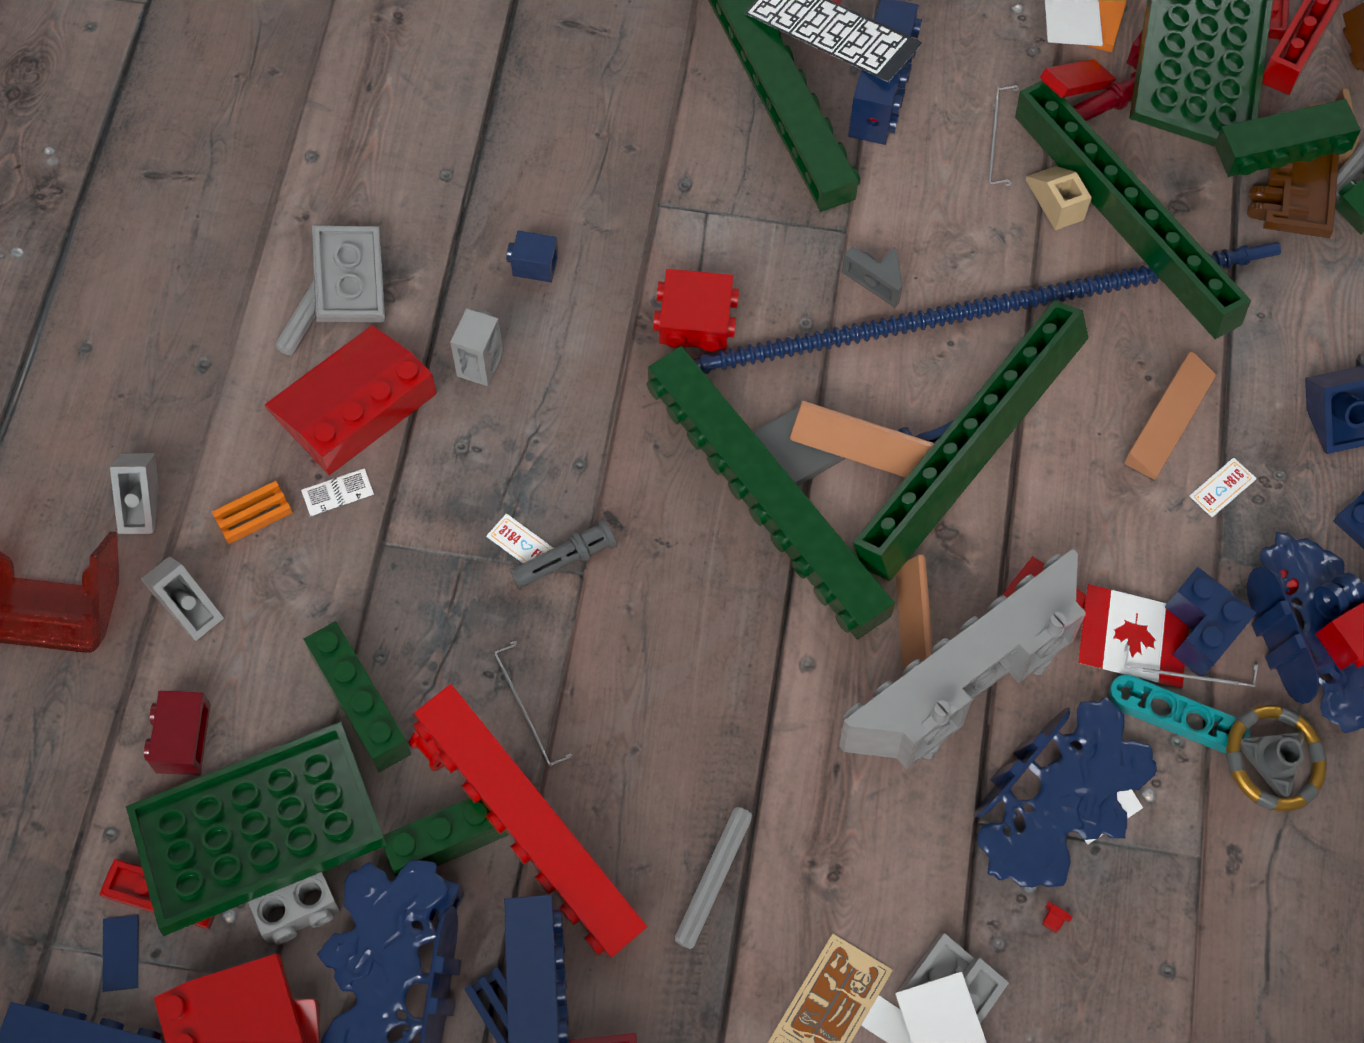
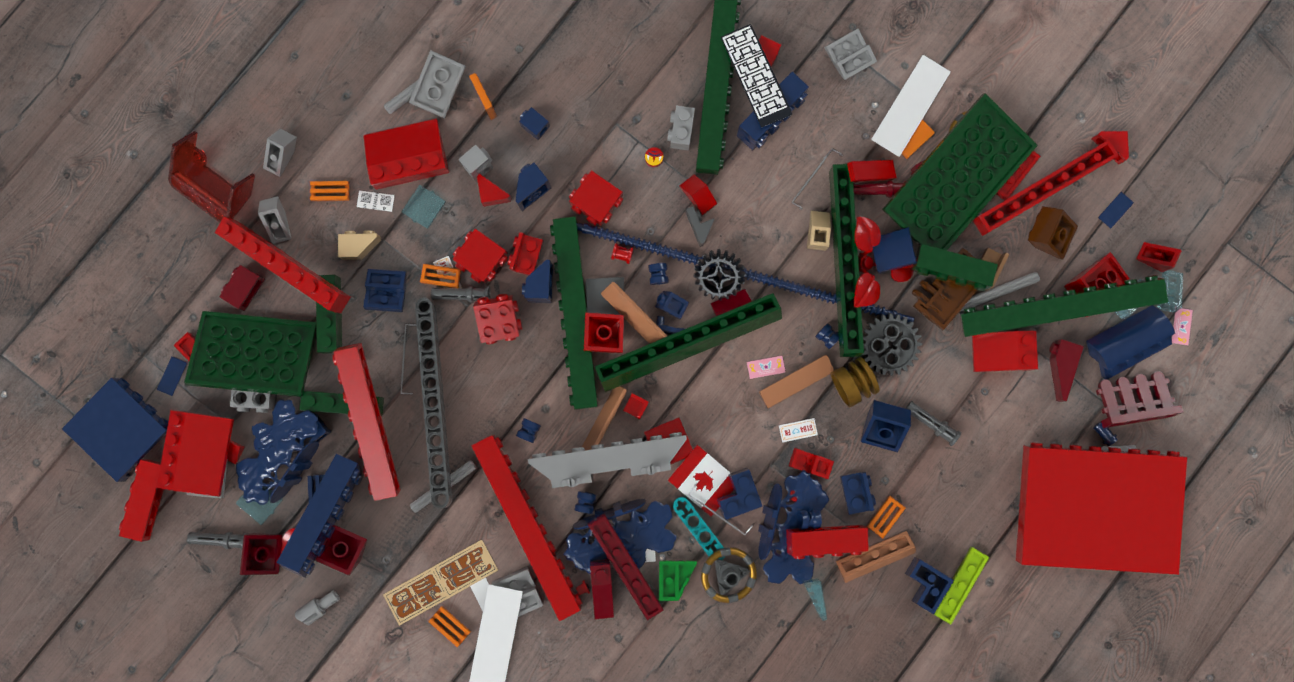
camera: 30 degrees right, 20 degrees up
(238, 646) = (282, 265): none -> red brick
(345, 567) = (356, 246): none -> tan slope
(423, 461) = (423, 206): none -> clear light blue piece
(431, 616) = (385, 290): none -> dark blue slope
(433, 250) = (483, 96): none -> orange tile
(514, 553) = (438, 283): none -> orange tile
(525, 382) = (490, 193): none -> red slope
(562, 480) = (479, 257): none -> red brick
(585, 334) = (530, 186): none -> dark blue slope
(627, 756) = (439, 409): none -> dark grey beam
(633, 446) = (525, 254): none -> red bracket
(648, 556) = (497, 318): none -> red brick
(689, 470) = (539, 284): none -> dark blue slope
(746, 218) = (654, 157): none -> tile
(764, 156) = (682, 127): none -> light grey brick
(785, 369) = (622, 253): none -> red bush
(803, 705) = (528, 430): none -> dark blue wheel
(834, 485) = (603, 332): none -> red slope
(845, 228) = (698, 194): none -> red slope
(860, 369) = (658, 274): none -> dark blue wheel
(902, 865) = (527, 528): none -> red brick
(908, 400) = (671, 304): none -> dark blue bracket
(953, 575) = (636, 406): none -> red panel
(969, 769) = (585, 497): none -> dark blue wheel
(980, 305) = (711, 275): none -> black gear
(993, 356) = (724, 305): none -> dark red slope
(1090, 893) = (601, 589): none -> dark red slope
(1107, 830) = (625, 566): none -> dark red tile
(1110, 423) = (766, 367): none -> bright pink sticker
(1173, 327) = (828, 336): none -> dark blue wheel
(1187, 159) = (894, 251): none -> dark blue slope
(1192, 215) = (867, 289): none -> red plant
(1193, 813) = (674, 578): none -> green wing
(1261, 363) = (859, 379): none -> pearl gold wheel
(1287, 516) = (811, 463): none -> red slope
(1299, 301) = (902, 357): none -> dark grey gear

